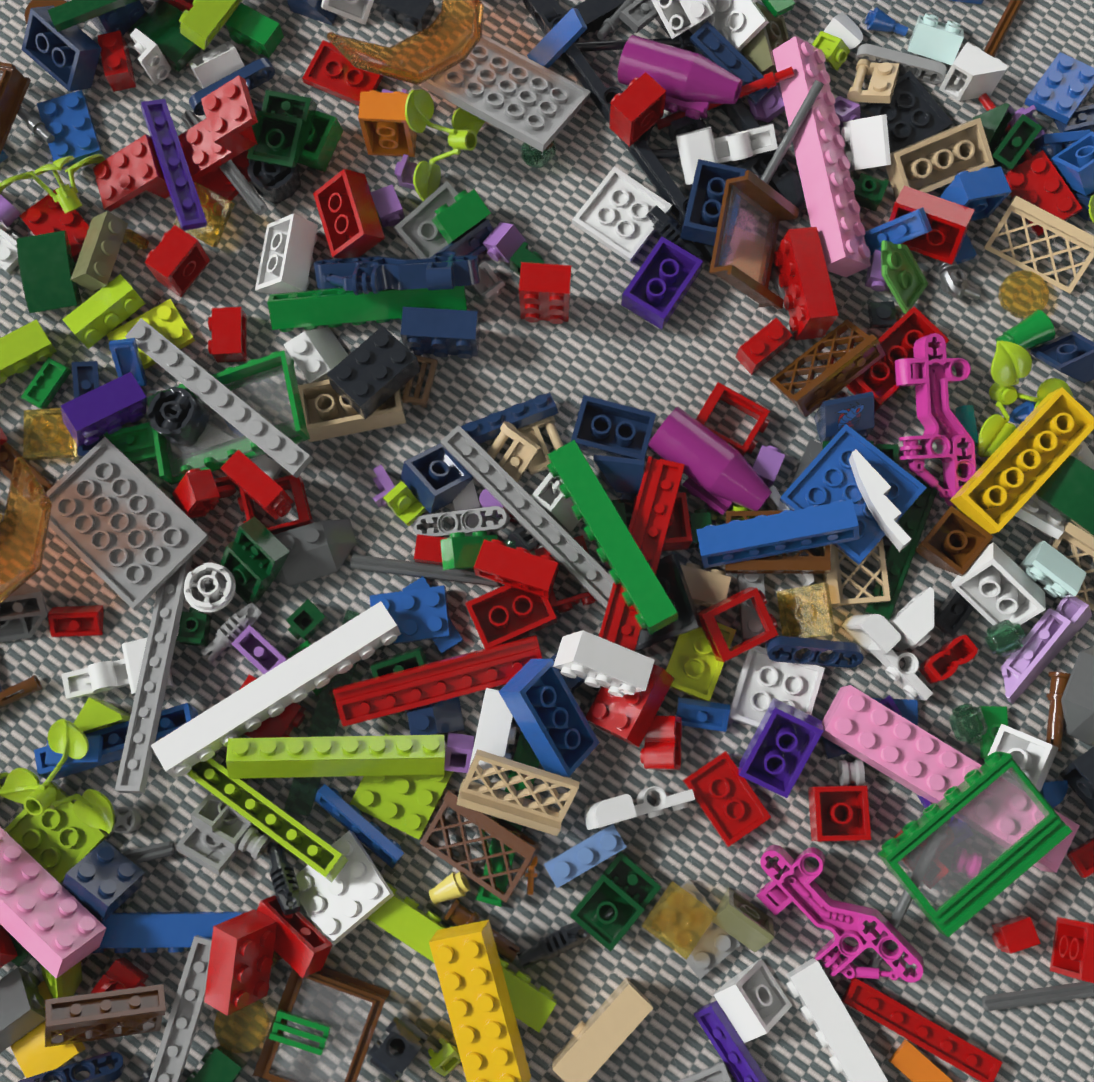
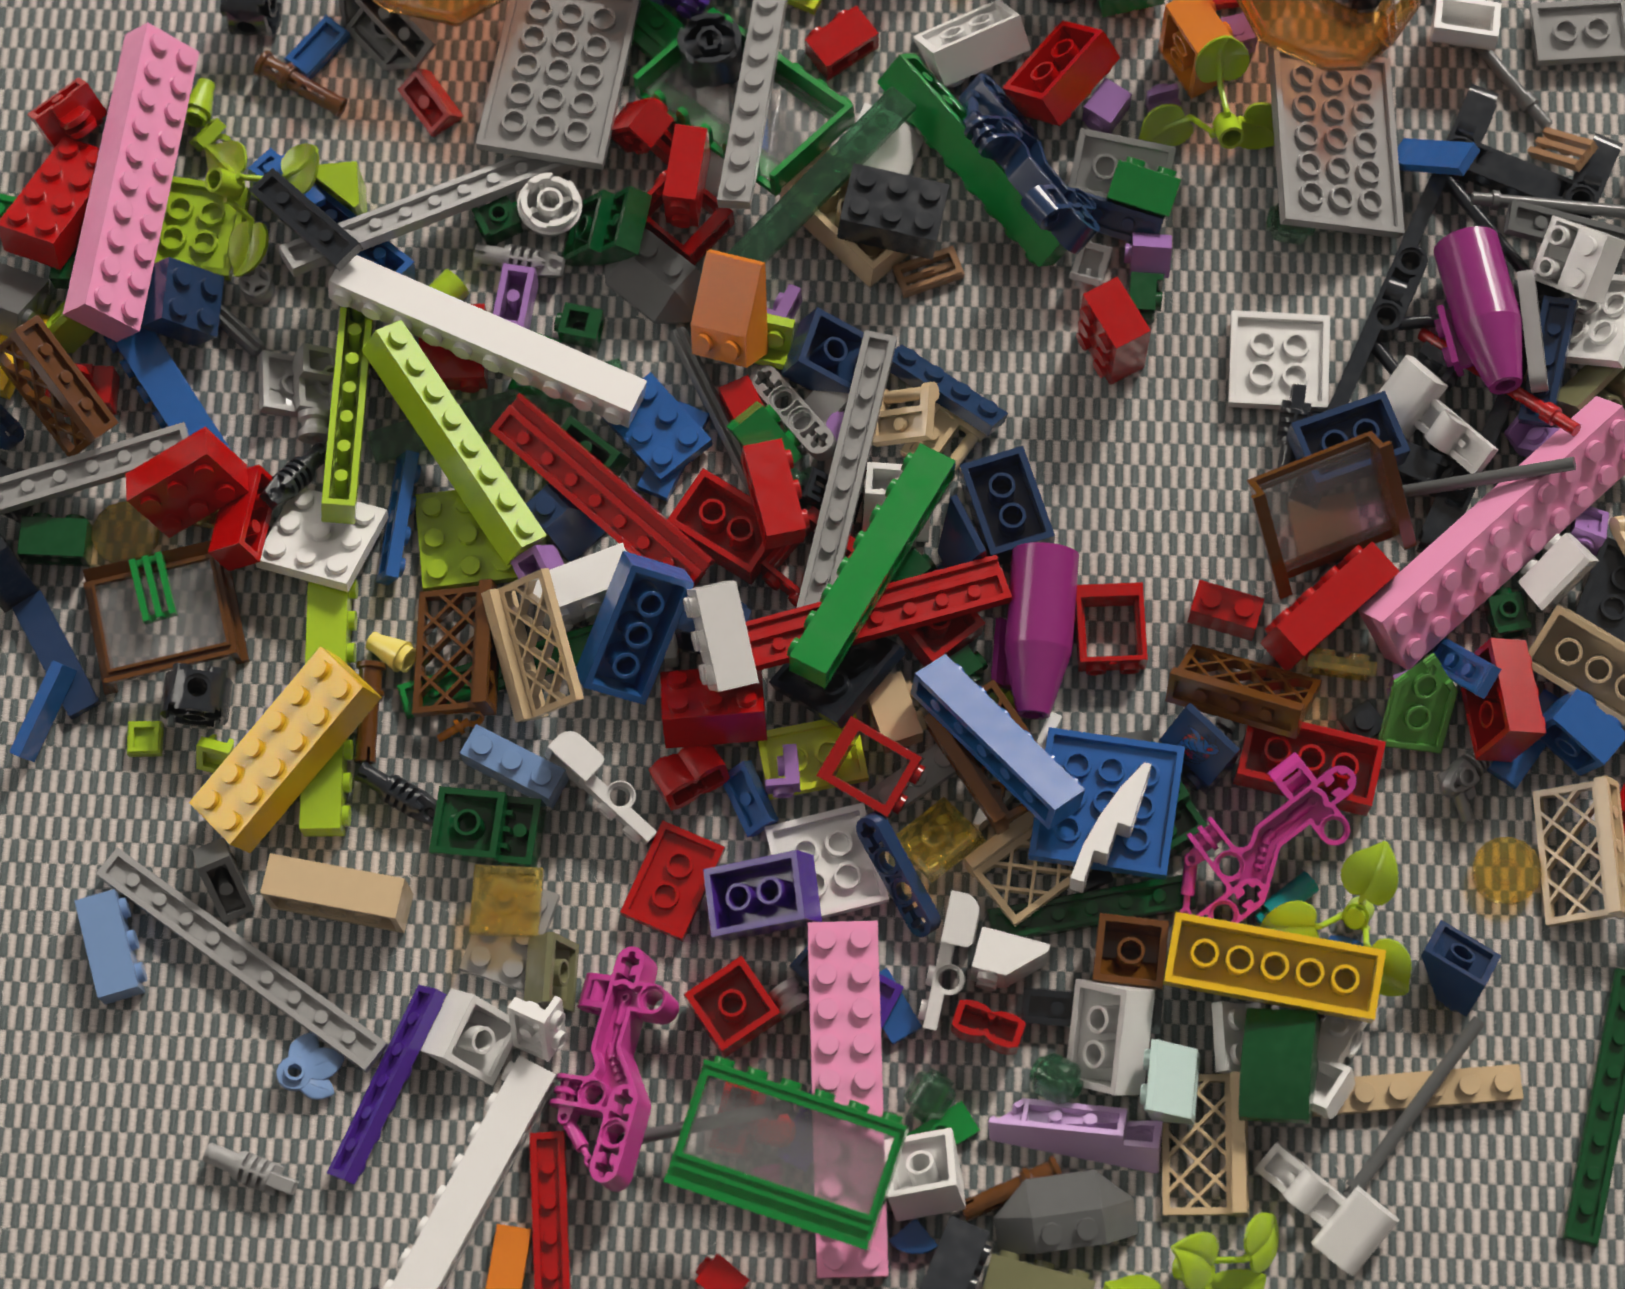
camera: 60 degrees right, 5 degrees down
(109, 674) = (395, 172): white plate -> none
(109, 759) = (306, 219): none -> black plate
(218, 691) = (450, 284): none -> lime brick
(322, 410) = (825, 177): none -> clear green tile
(369, 516) = (730, 310): none -> orange slope
(440, 332) = (993, 254): dark blue brick -> none
(637, 108) = (1403, 290): red brick -> none
(661, 283) = (1219, 450): dark purple brick -> none
(702, 676) = (789, 767): none -> medium lavender bracket
(733, 65) = (1532, 331): none -> light grey beam
(768, 464) = (1084, 698): medium lavender brick -> none
(779, 956) = (537, 1029): none -> white bracket
(851, 296) = (1352, 667): none -> clear yellow plate
(1031, 331) = (1449, 897): green plant -> none

